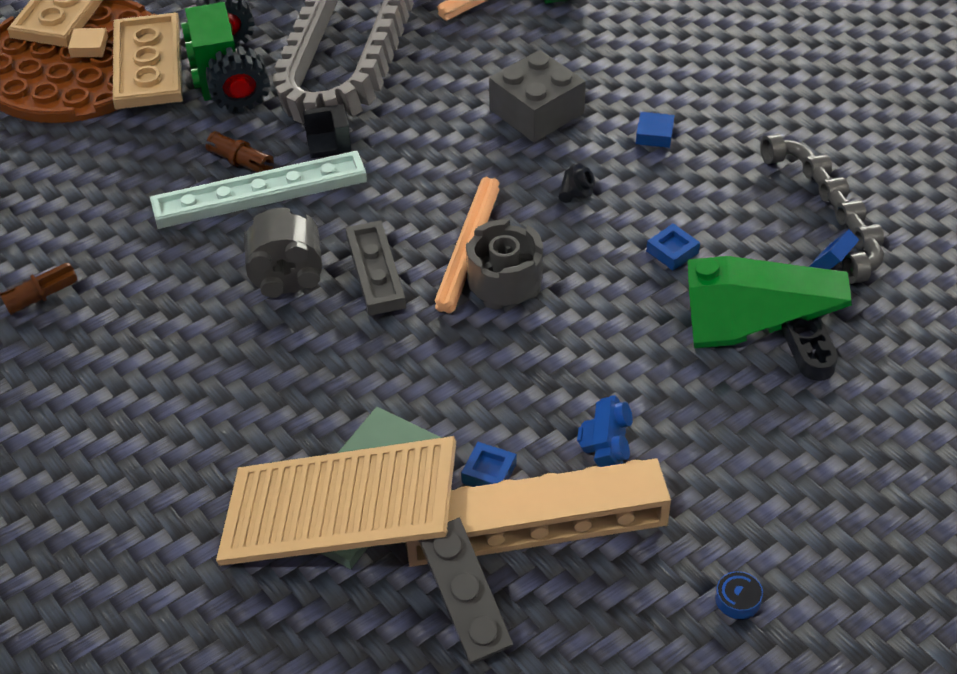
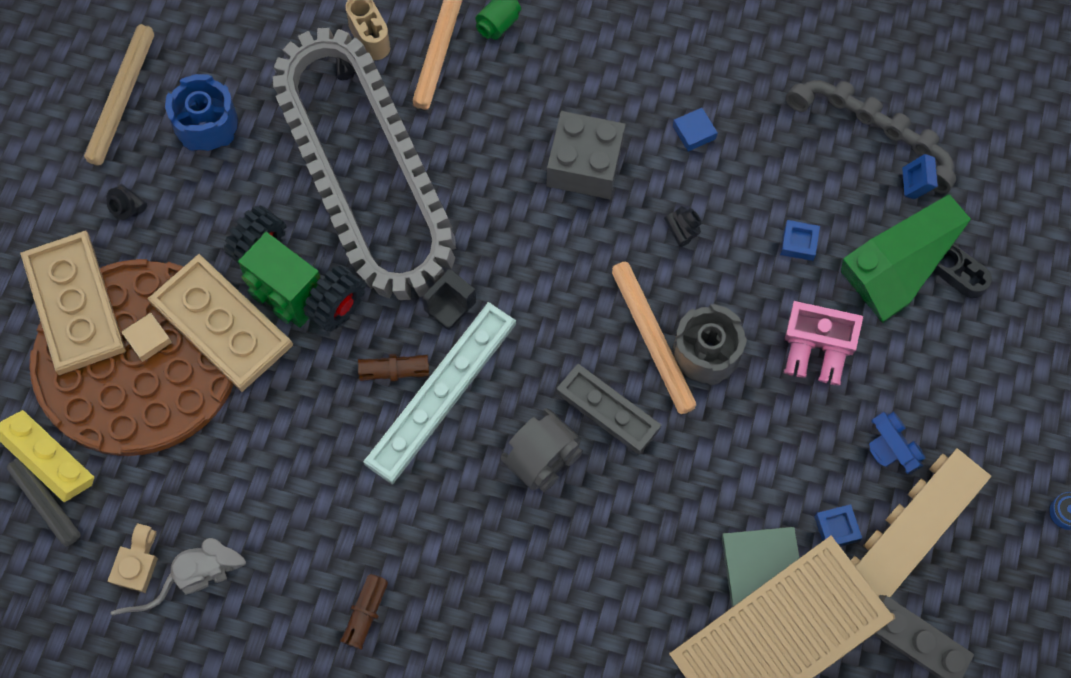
camera: 40 degrees left, 20 degrees up
(621, 305) = (822, 328): none -> bright pink brick

